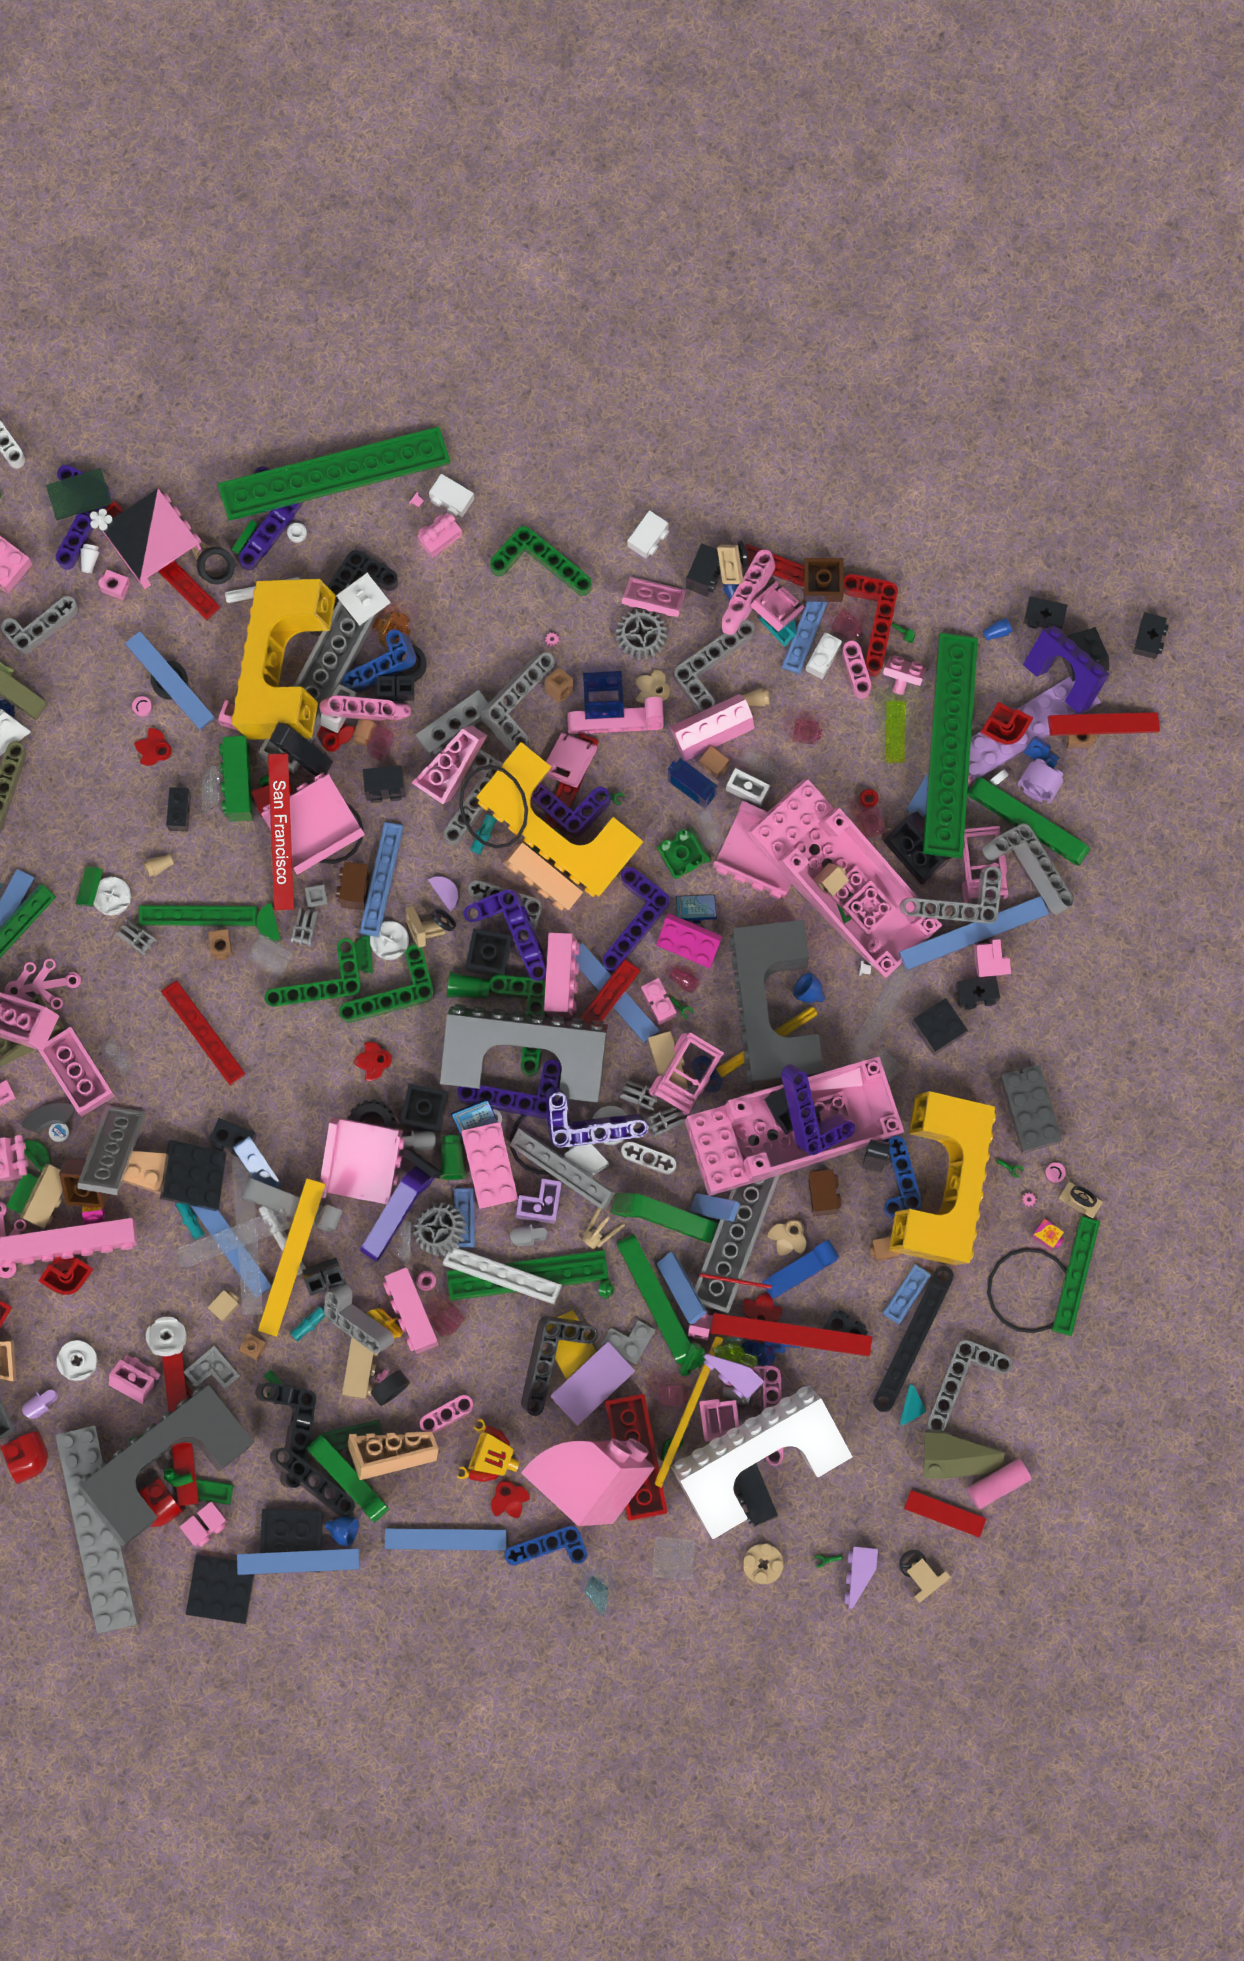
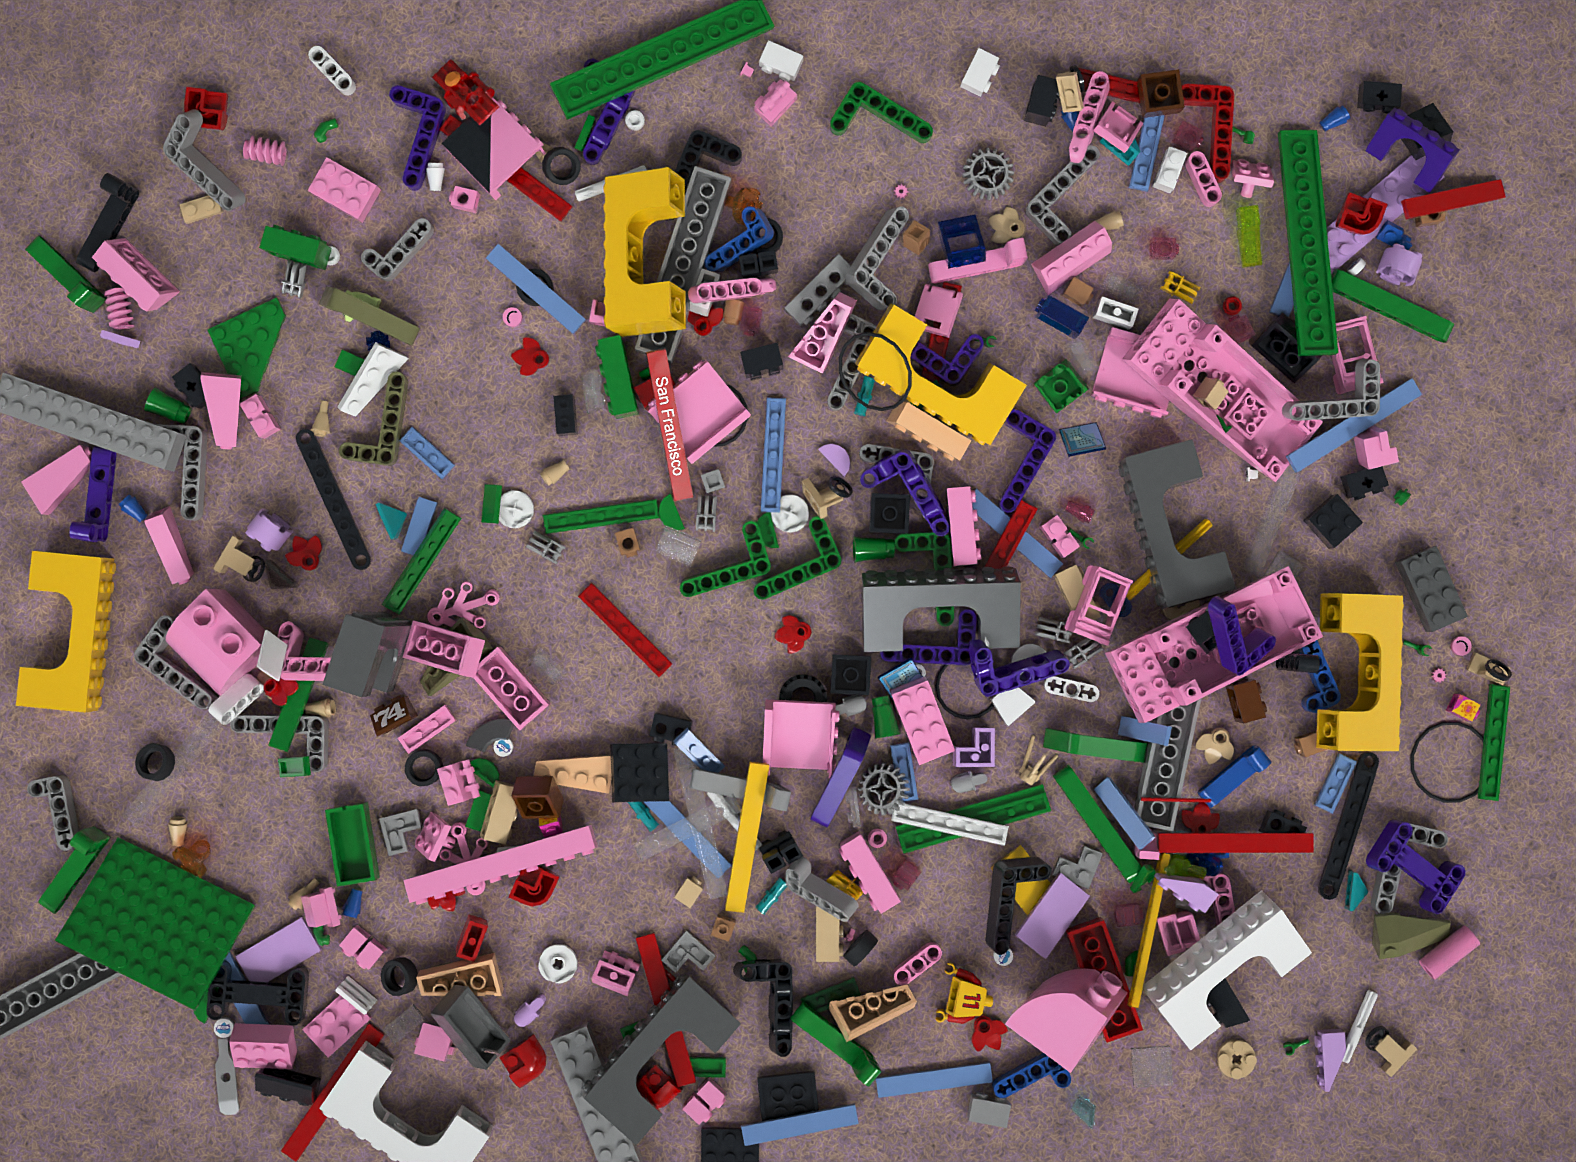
camera: 10 degrees left, 10 degrees up
(33, 827) = (427, 453): none -> medium blue tile
(78, 494) = (414, 113): clear green piece -> none
(100, 520) = (440, 136): white plant -> none
(111, 1150) = (558, 764): light grey plate -> none
(127, 484) = (459, 93): none -> red piece
(166, 1347) = (648, 935): white plate -> none
(175, 1479) = (671, 1064): green arm -> none
(300, 750) = (676, 342): black beam -> none
(303, 1477) = (794, 1044): black beam -> none
(343, 1529) = (836, 1086): blue helmet -> none
(354, 885) = (748, 466): reddish brown brick -> none
(363, 599) = (712, 179): white piece -> none
(422, 1163) = (858, 730): black tile -> none
(497, 1576) = (989, 1110): none -> light grey brick
(537, 1423) = (1004, 959): none -> white tile
(562, 1168) = (993, 715): light grey plate -> none
(606, 1289) = (1050, 821): green plate -> none
(653, 596) = (995, 134): bright pink plate -> none
(689, 940) = (1081, 473): dark pink plate -> none
(809, 989) = (1201, 503): blue helmet -> none
(819, 773) = (1183, 289): none -> yellow arm
(895, 1549) = (1359, 1024): none -> white axle
(945, 1513) = (1400, 986): red tile -> none
(973, 1386) = (1439, 882): none -> dark purple beam
(1014, 1013) = (1401, 496): none -> green plate
(1035, 862) = (1405, 346): light grey beam -> none
(1146, 646) = (1478, 109): black brick -> none

